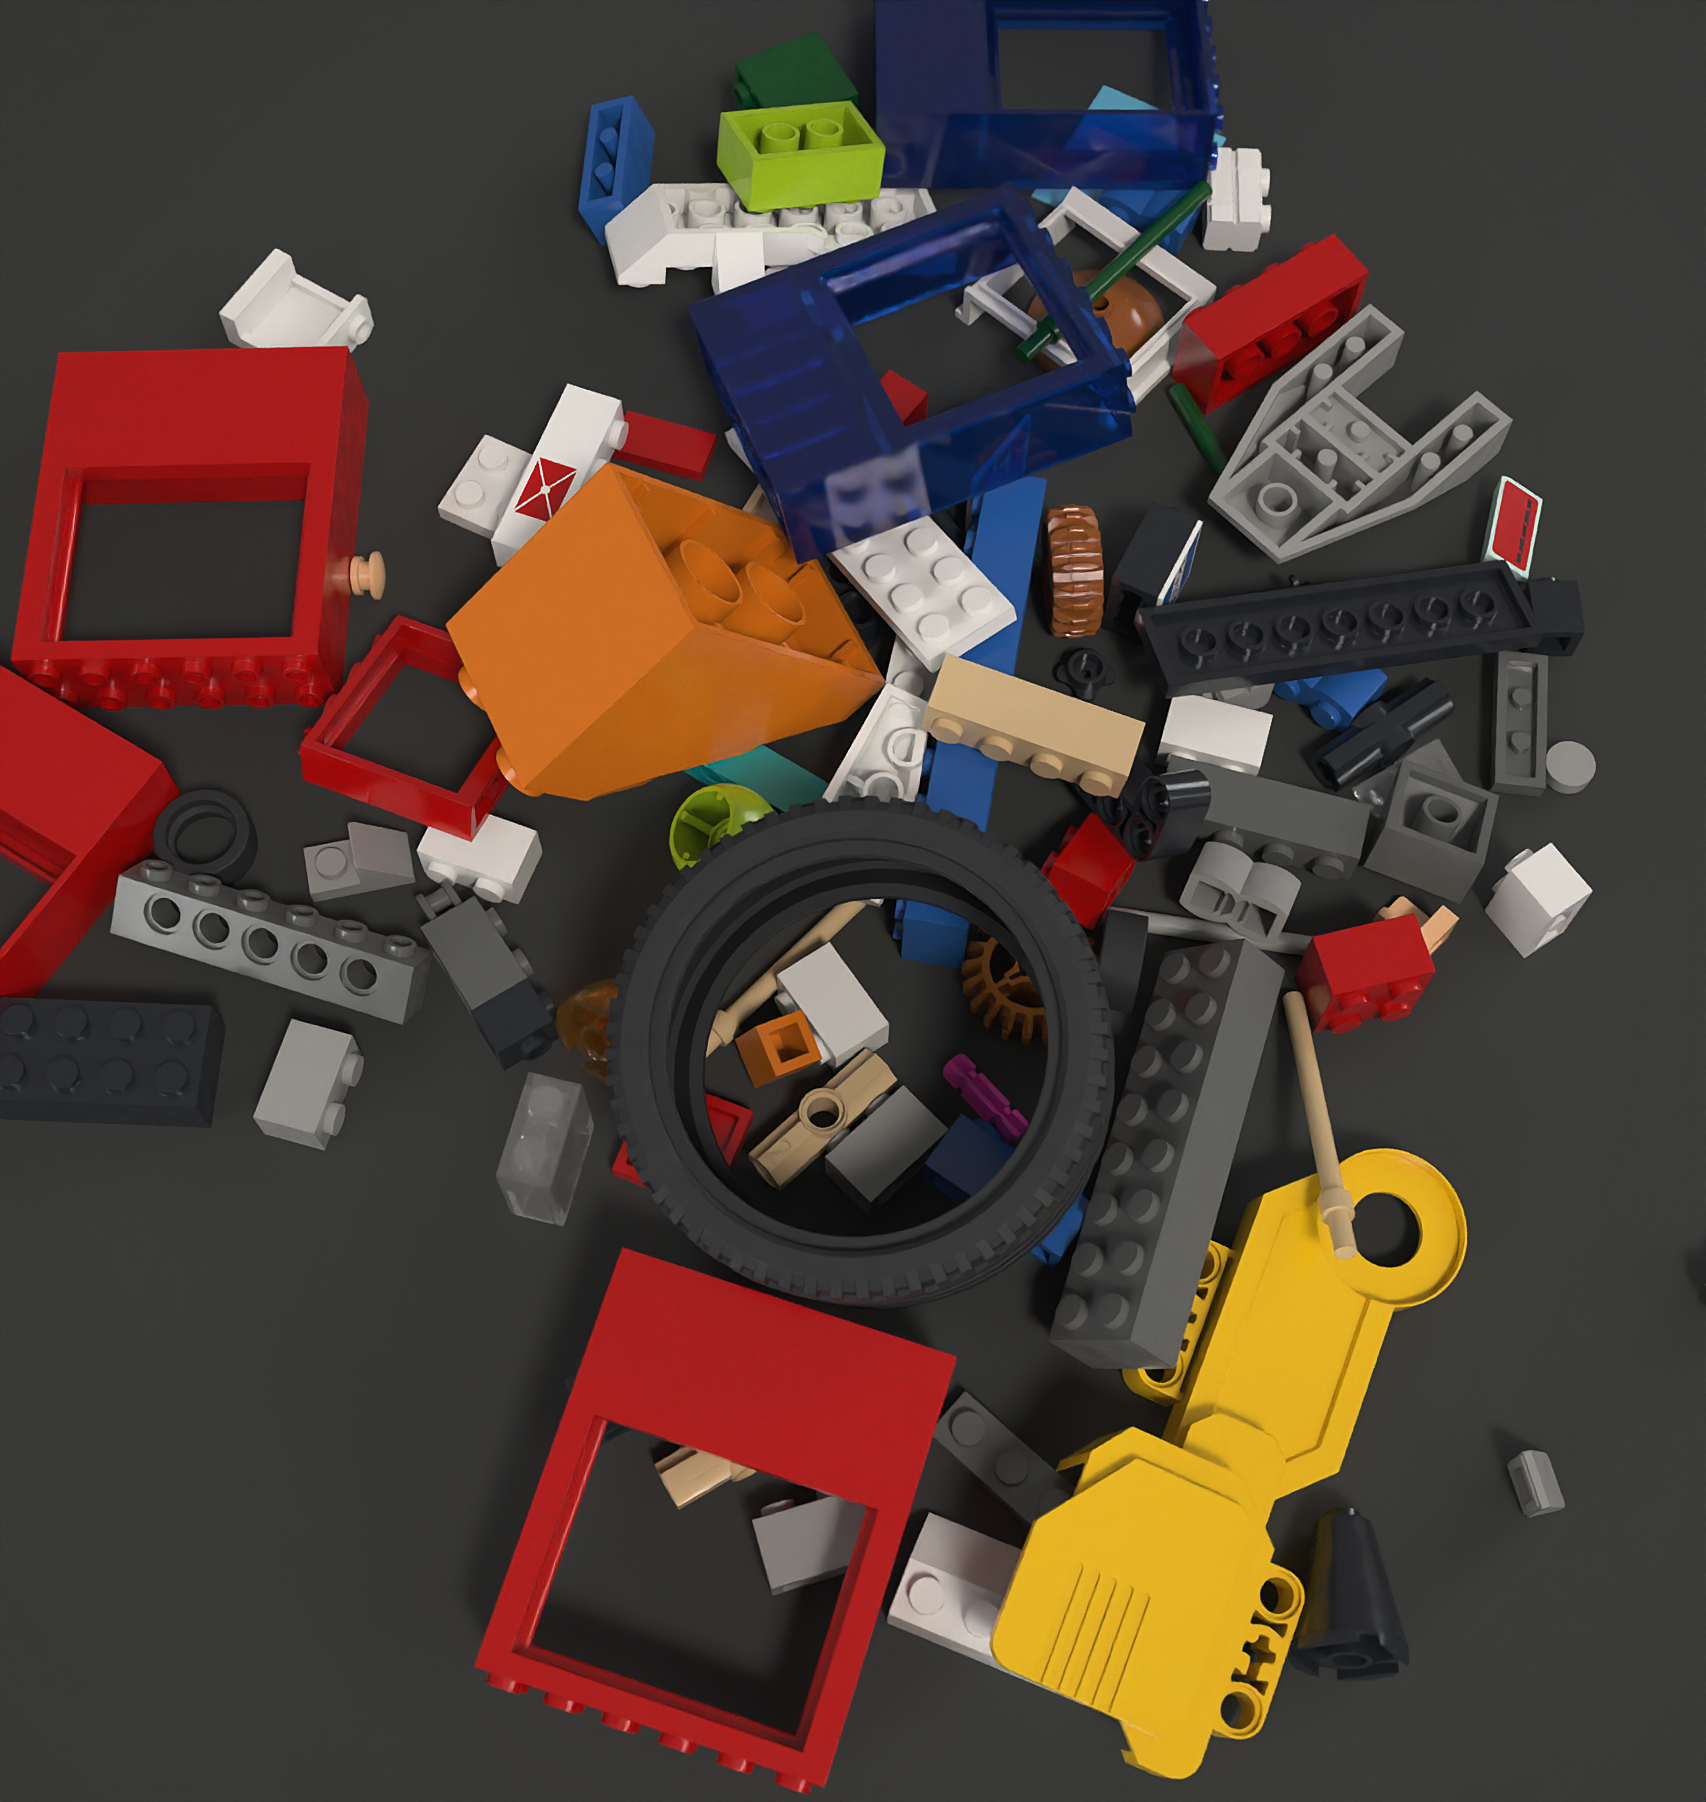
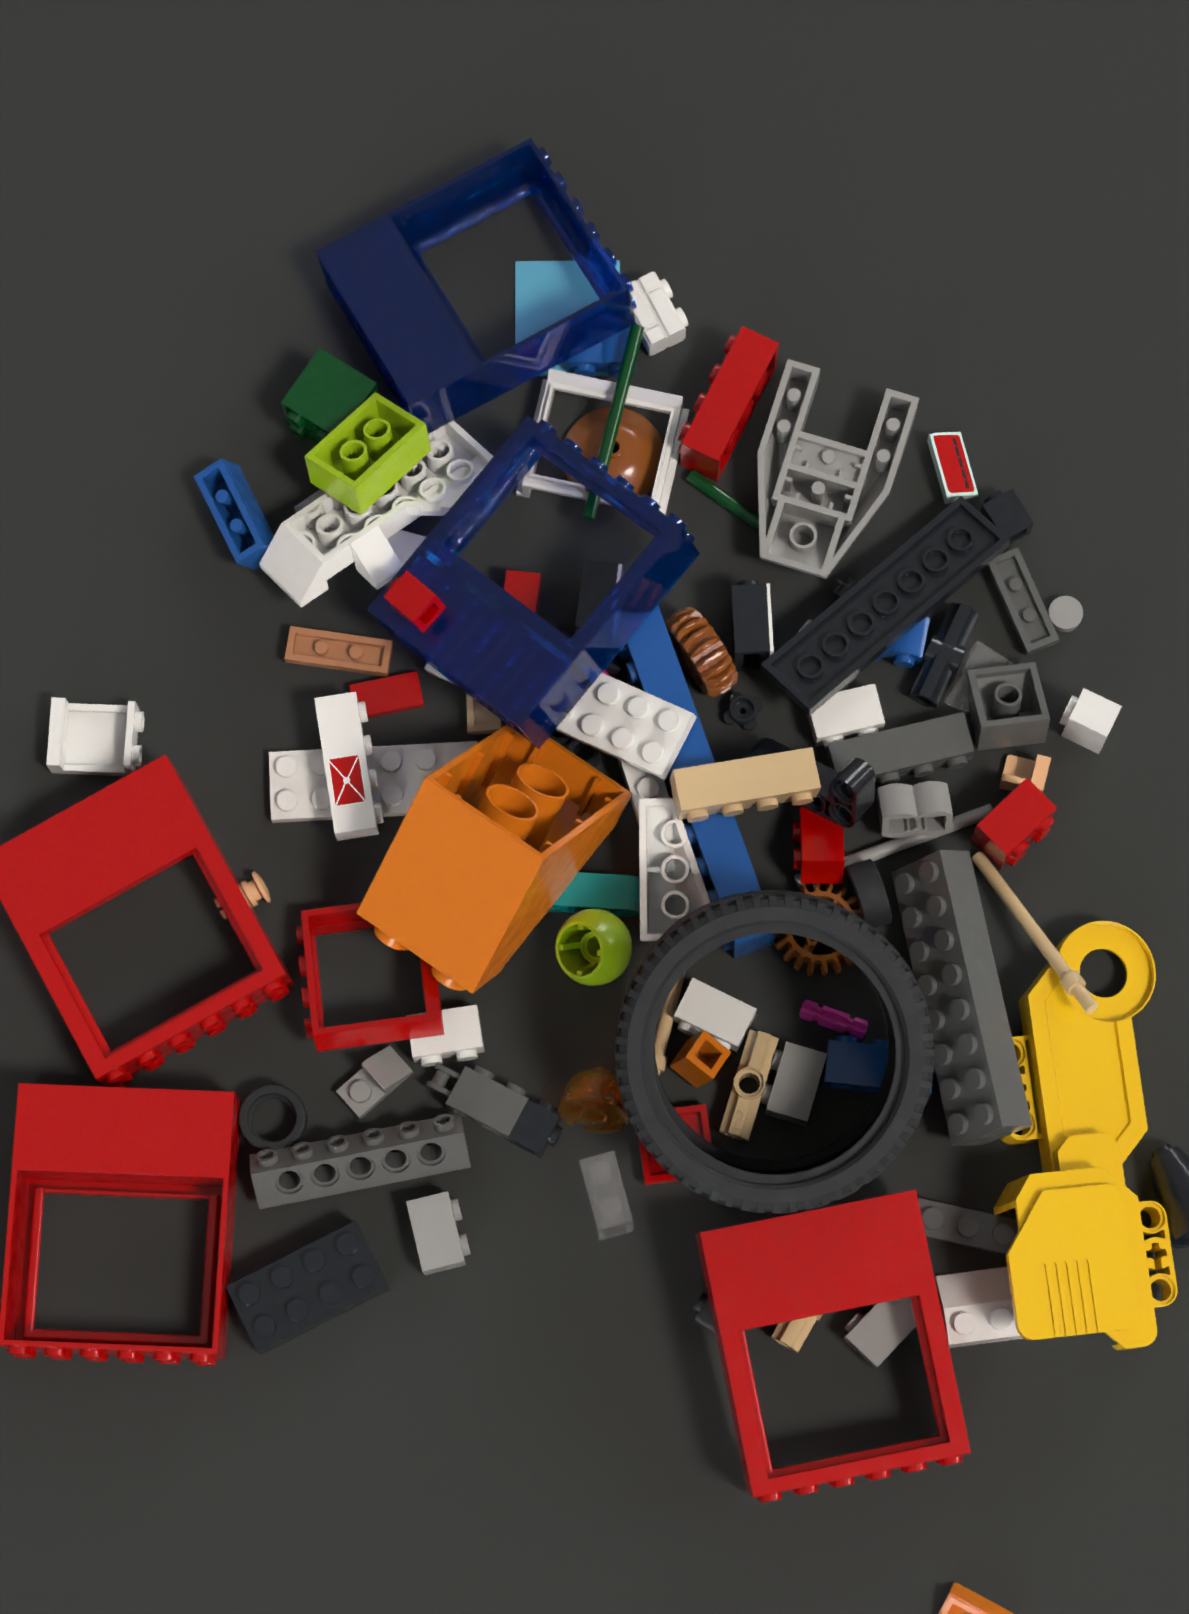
camera: 25 degrees left, 10 degrees up
(639, 370) = (338, 651): none -> nougat plate
(744, 308) = (414, 601): none -> red brick

